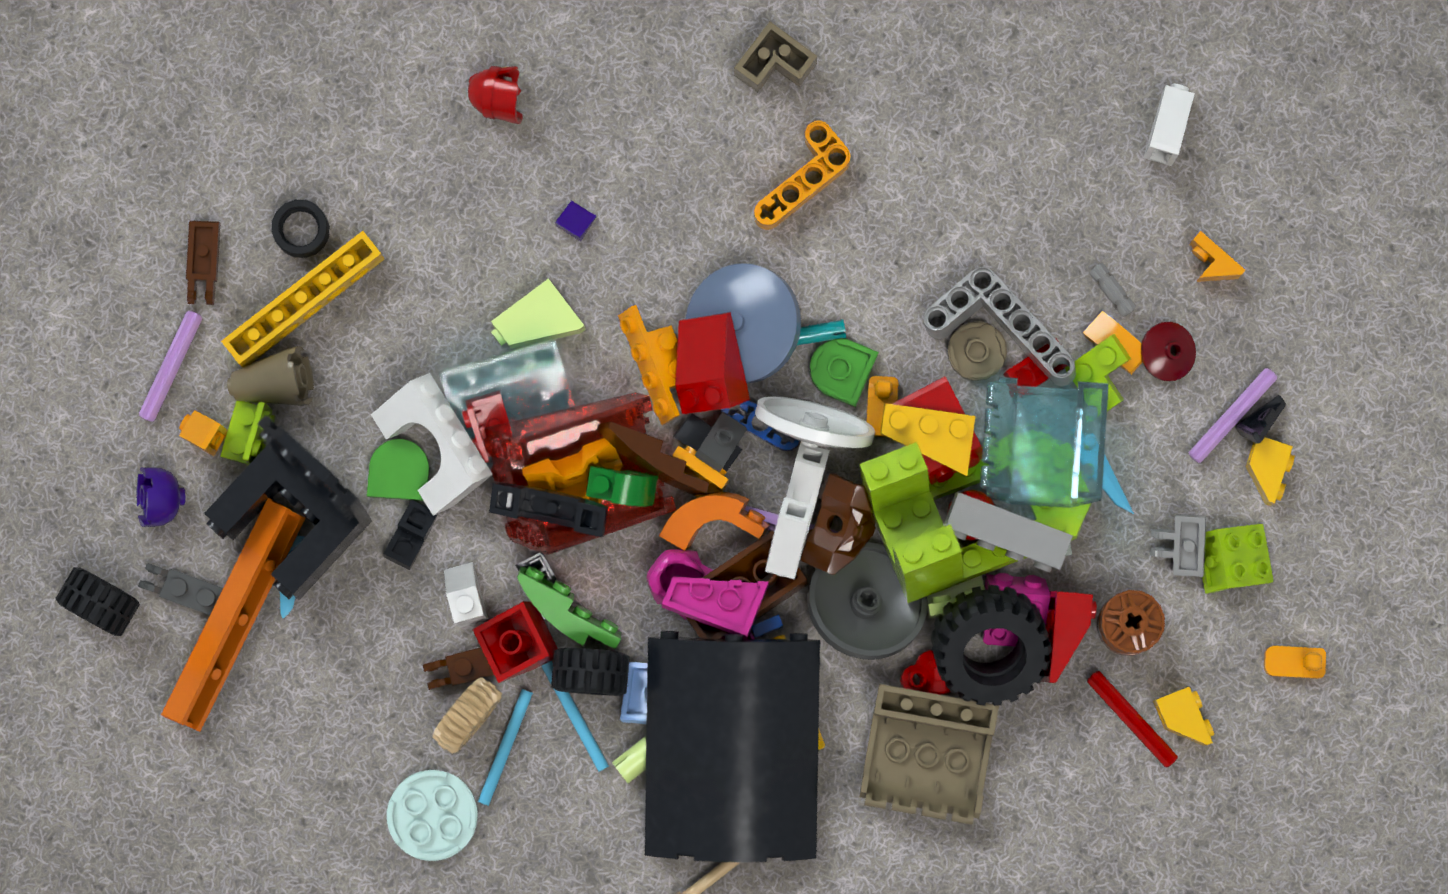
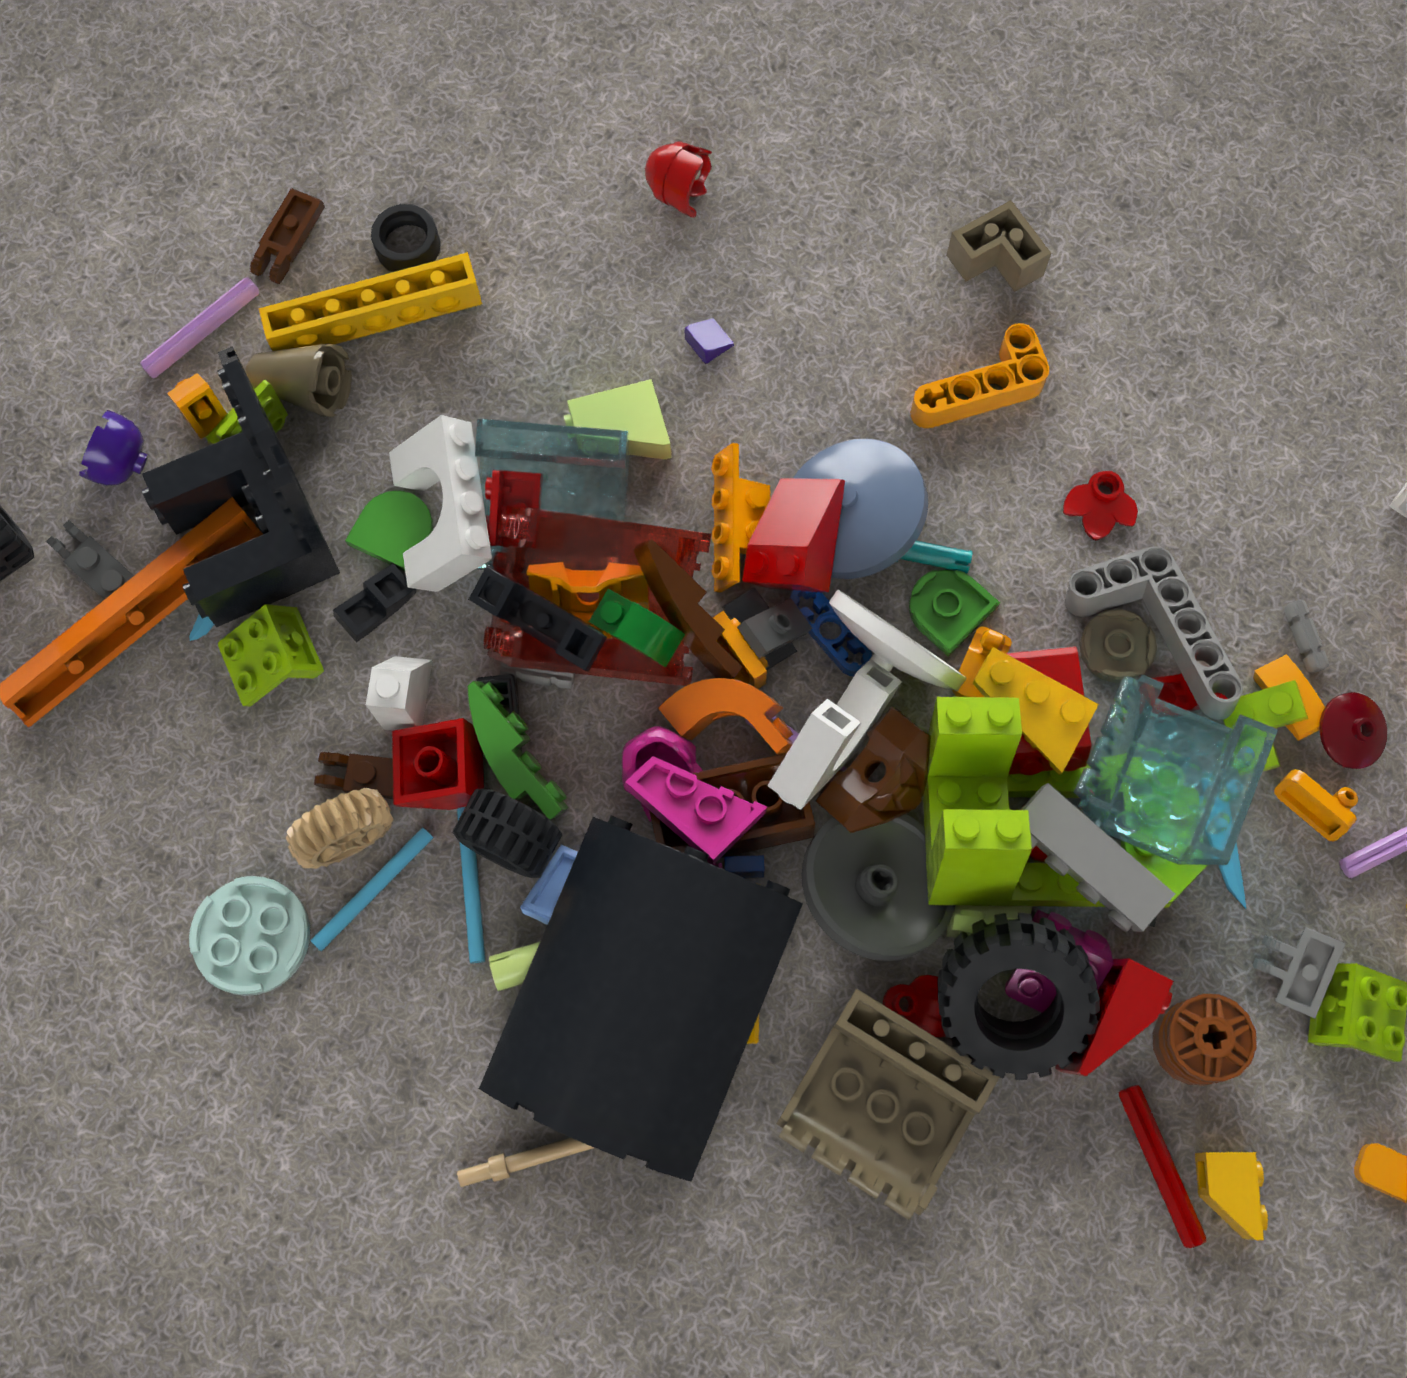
camera: 20 degrees right, 10 degrees down
(349, 606) = (268, 651): none -> lime bracket
(927, 247) = (1098, 509): none -> red plate
(1159, 421) = (1321, 810): none -> light orange piece

